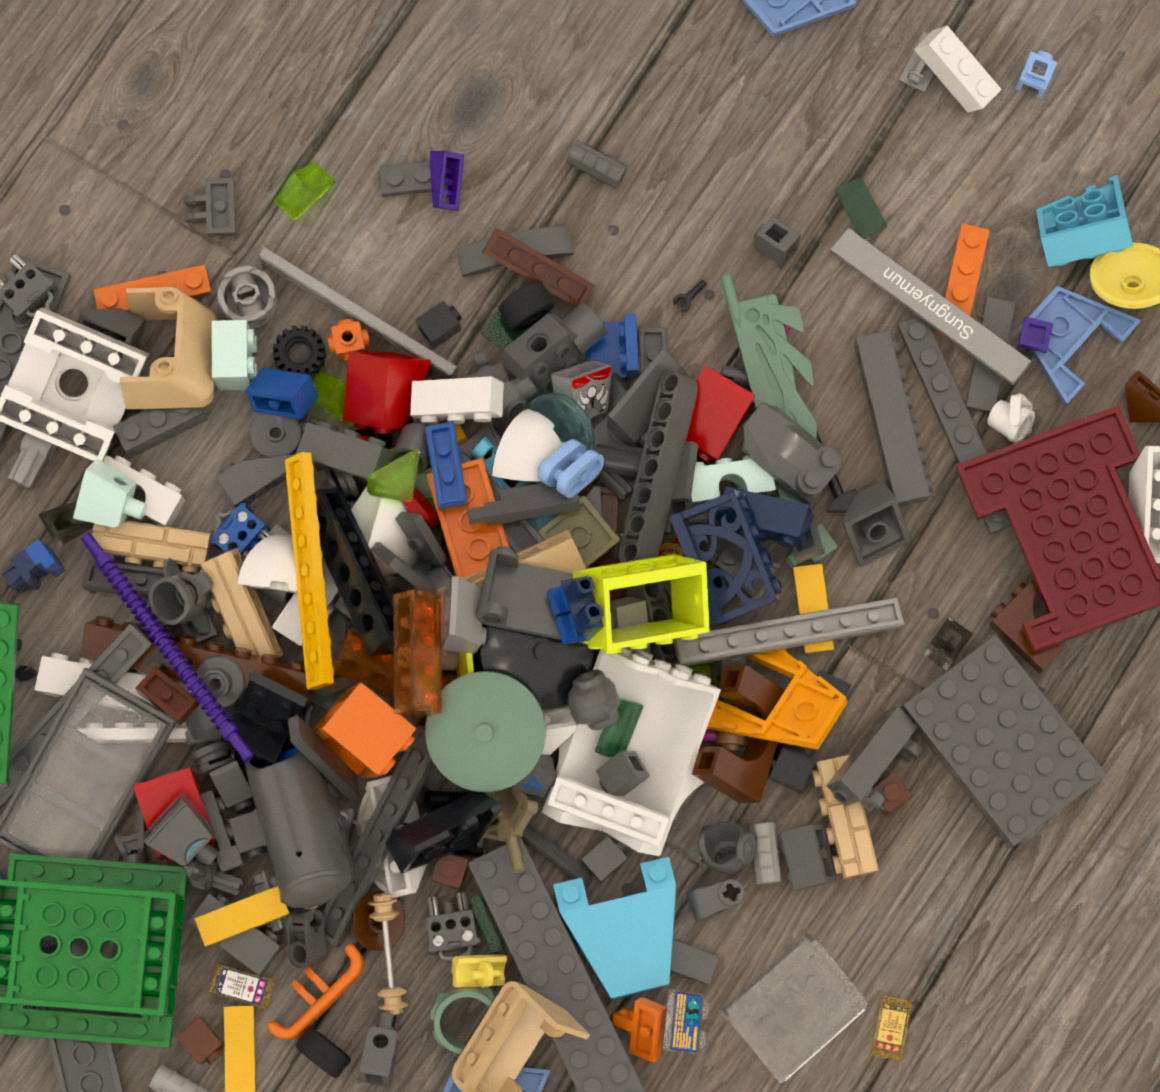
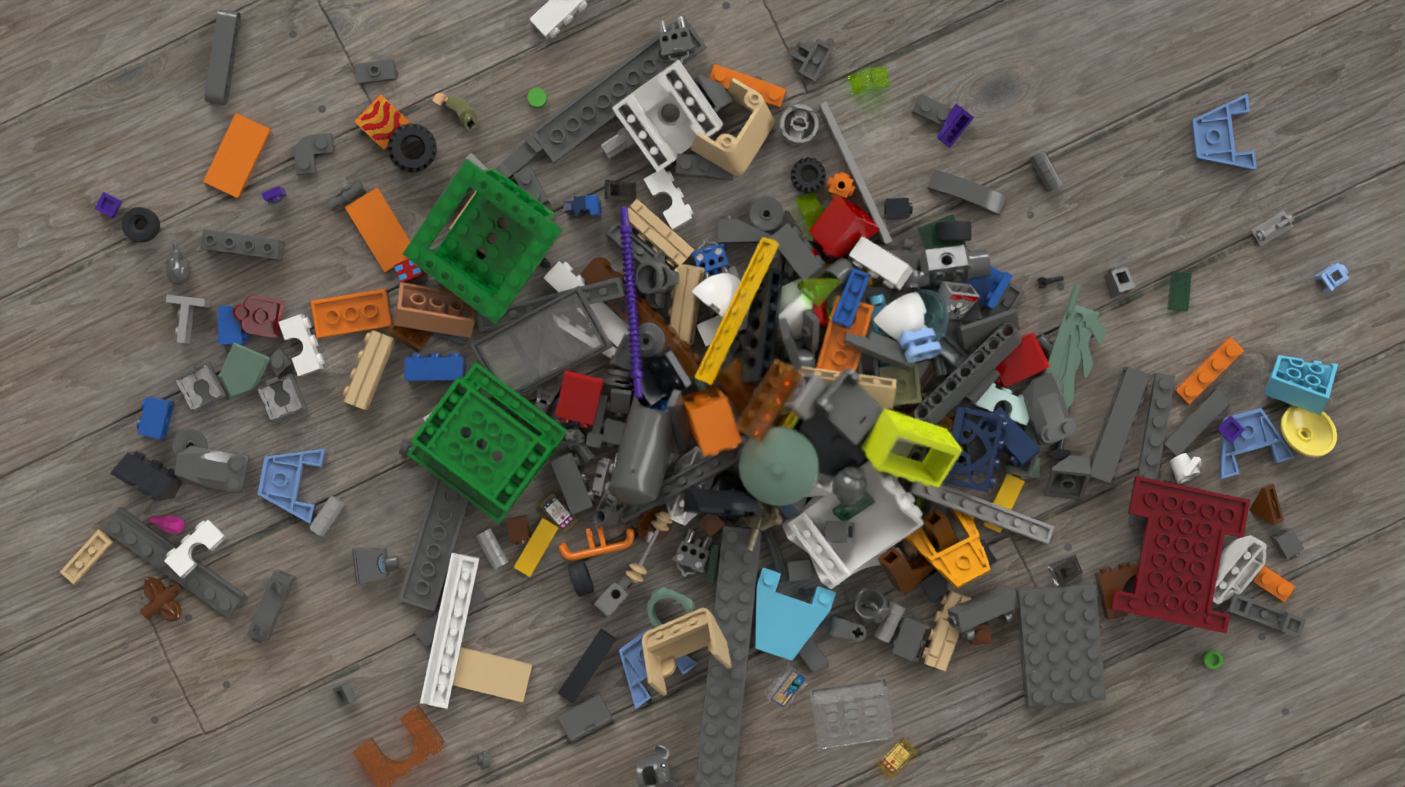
camera: 35 degrees right, 10 degrees up
(107, 497) = (649, 194): light aqua torso -> none
(167, 695) = (614, 330): reddish brown plate -> none
(182, 833) = (576, 413): dark grey torso -> none
(233, 354) = (769, 154): light aqua brick -> none
(241, 916) = (581, 477): yellow tile -> none
(282, 393) = (784, 194): blue brick -> none
(478, 970) = (693, 588): light yellow hips -> none
(537, 267) = (974, 212): reddish brown plate -> none
(577, 610) = (875, 440): dark blue hips -> none
(645, 1026) = (763, 674): orange hinge -> none
(931, 306) = (1181, 374): light grey tile -> none
(957, 69) = (1289, 247): white brick -> none

